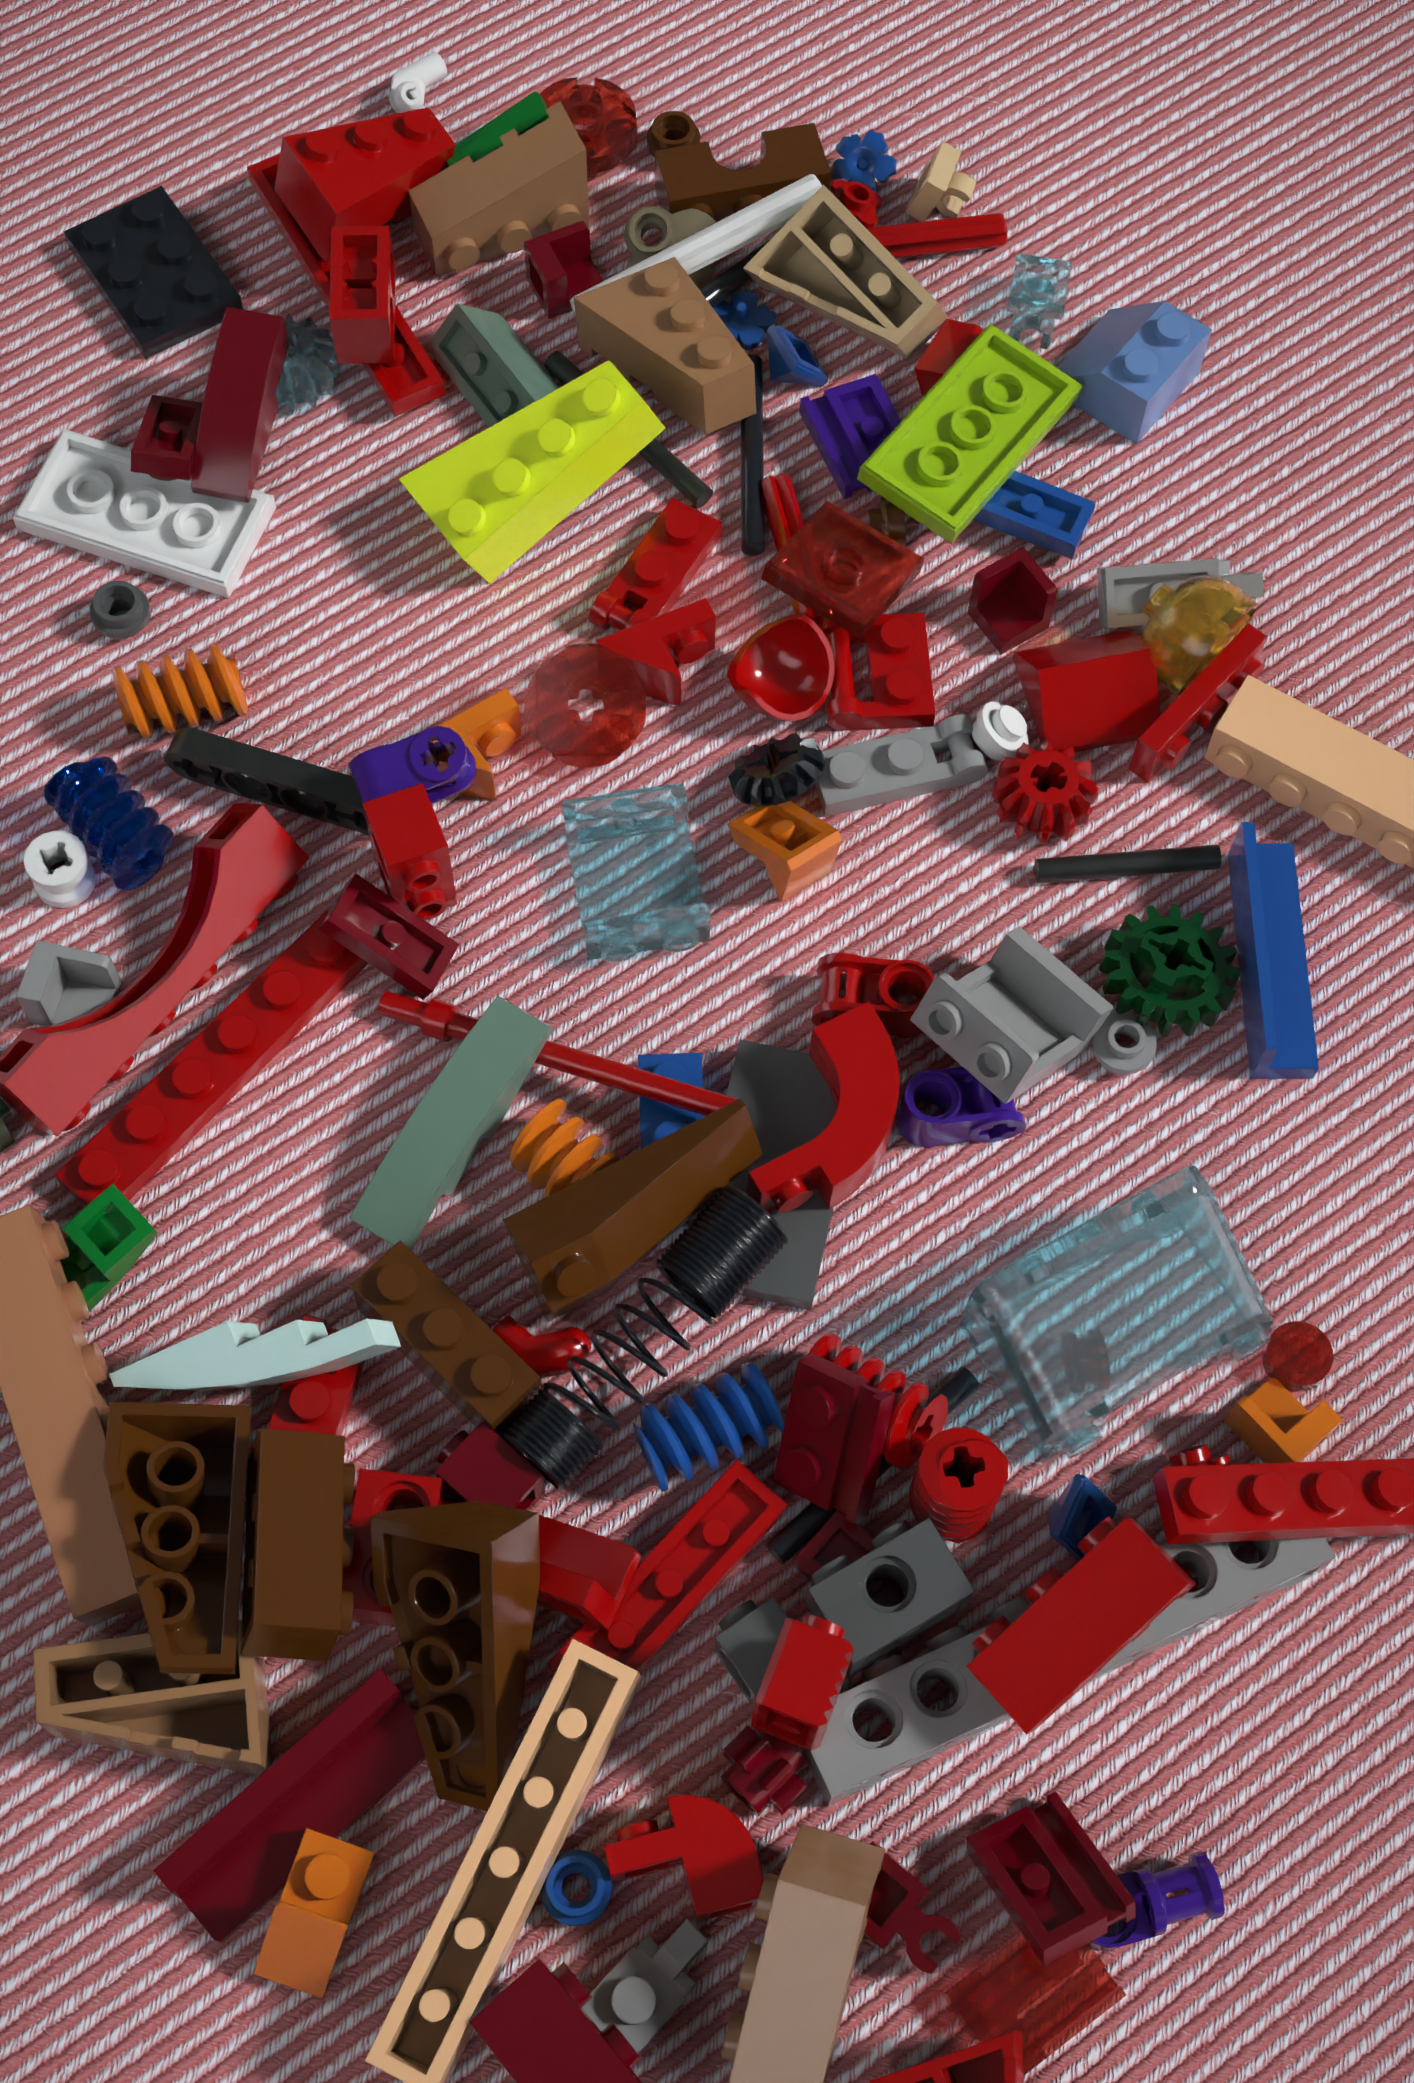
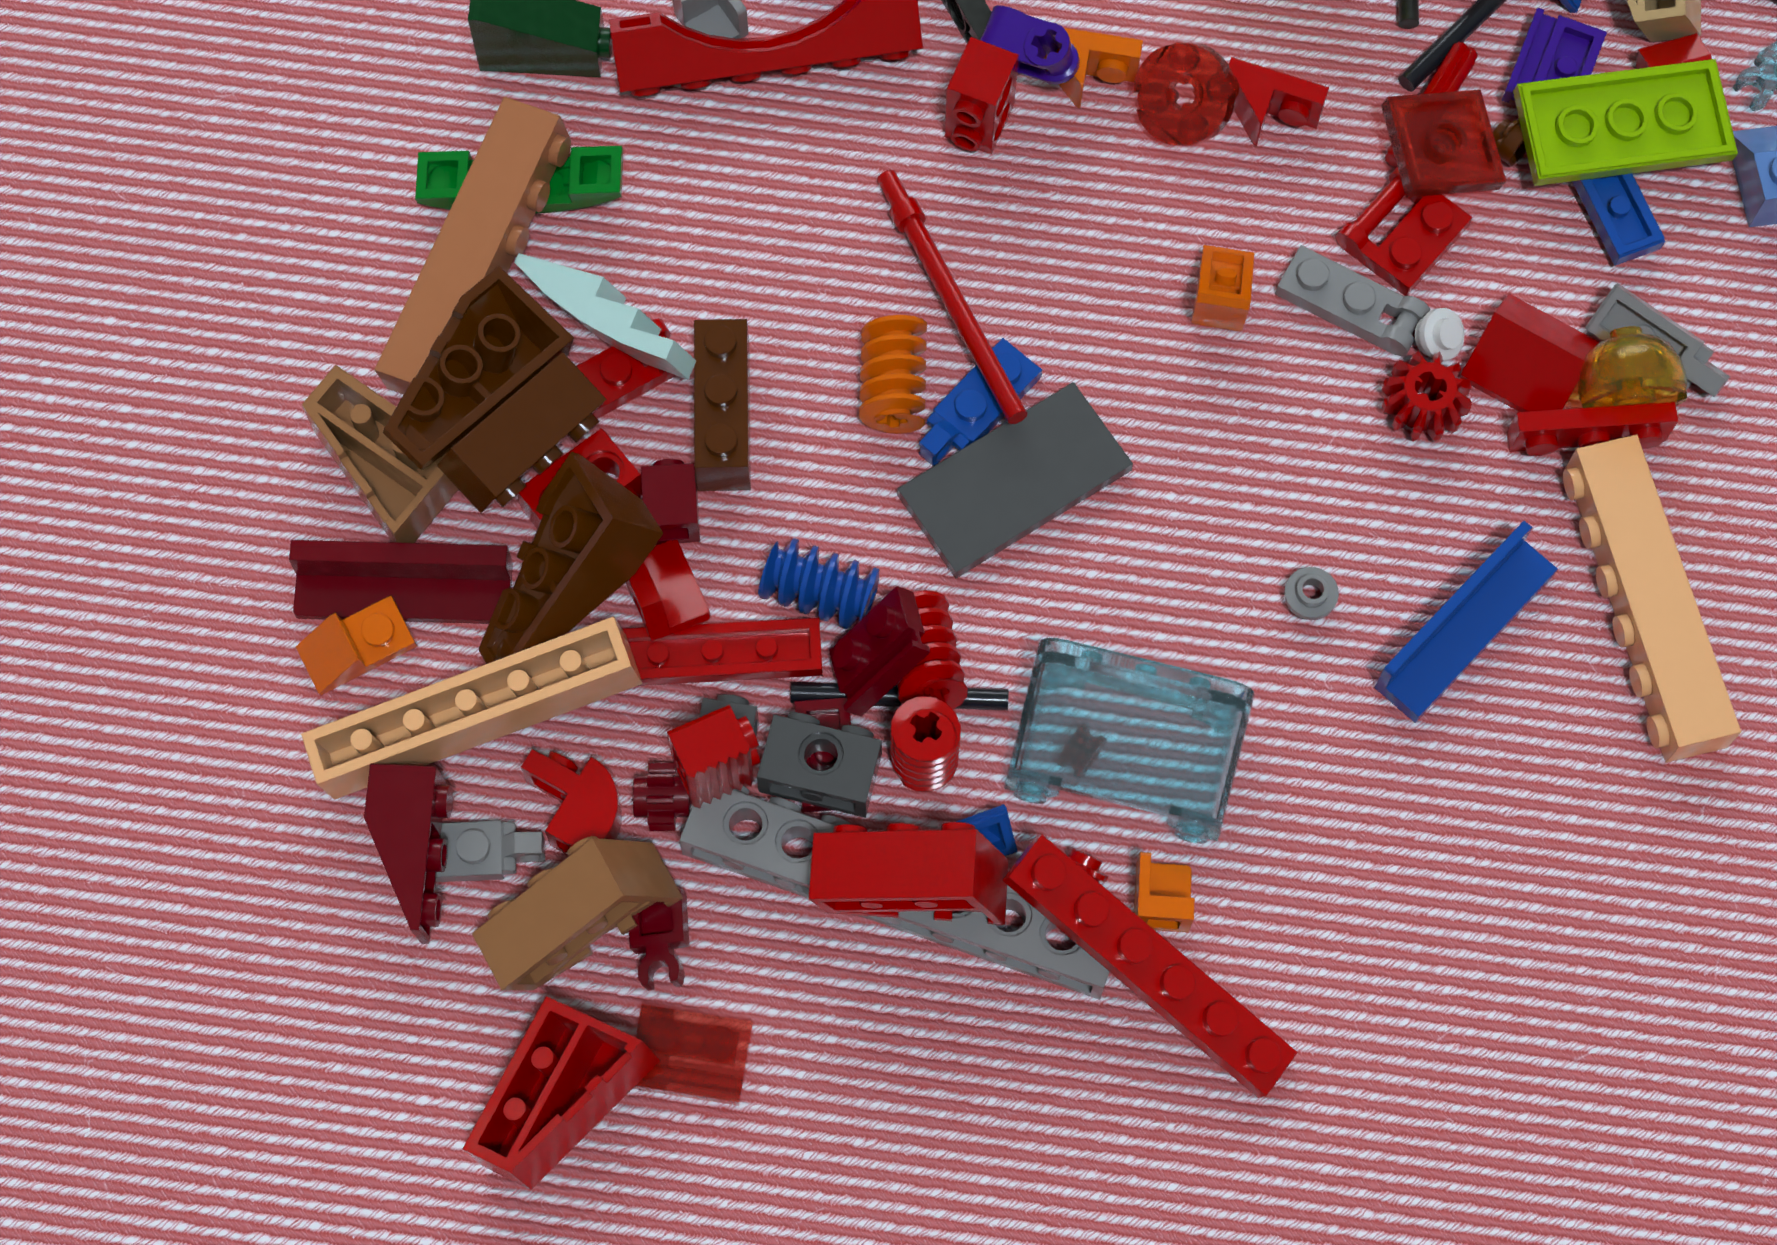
camera: 45 degrees right, 5 degrees up
(212, 1068) = (758, 129): red plate -> none
(389, 936) = (922, 137): dark red plate -> none
(451, 1122) = (849, 278): sand green slope -> none
(546, 1352) = (773, 462): red arm -> none
(590, 1909) = (497, 749): blue plate -> none
(613, 1219) = (885, 417): reddish brown wedge -> none
(635, 872) = (1114, 226): clear light blue panel -> none
(658, 567) = (1330, 45): red plate -> none
(710, 1270) = (910, 495): black piece -> none
(784, 669) = (1335, 177): red helmet -> none
(796, 765) = (1267, 237): black gear -> none
(864, 1081) = (1085, 492): red arch -> none
(871, 981) = (1177, 418): red piece -> none
(967, 1108) = (1171, 539): dark purple piece -> none
(1012, 600) = (1536, 257): dark red panel -> none
(1013, 1016) = (1247, 512): light grey panel -> none
(1050, 1878) = (757, 999): dark red plate -> none
(1127, 863) = (1437, 489): pearl dark grey bar -> none
(1157, 1911) = (801, 1067): dark purple connector -> none
(1169, 970) = (1395, 554): dark green gear -> none
(1298, 1356) = (1219, 869): clear red tile -> none

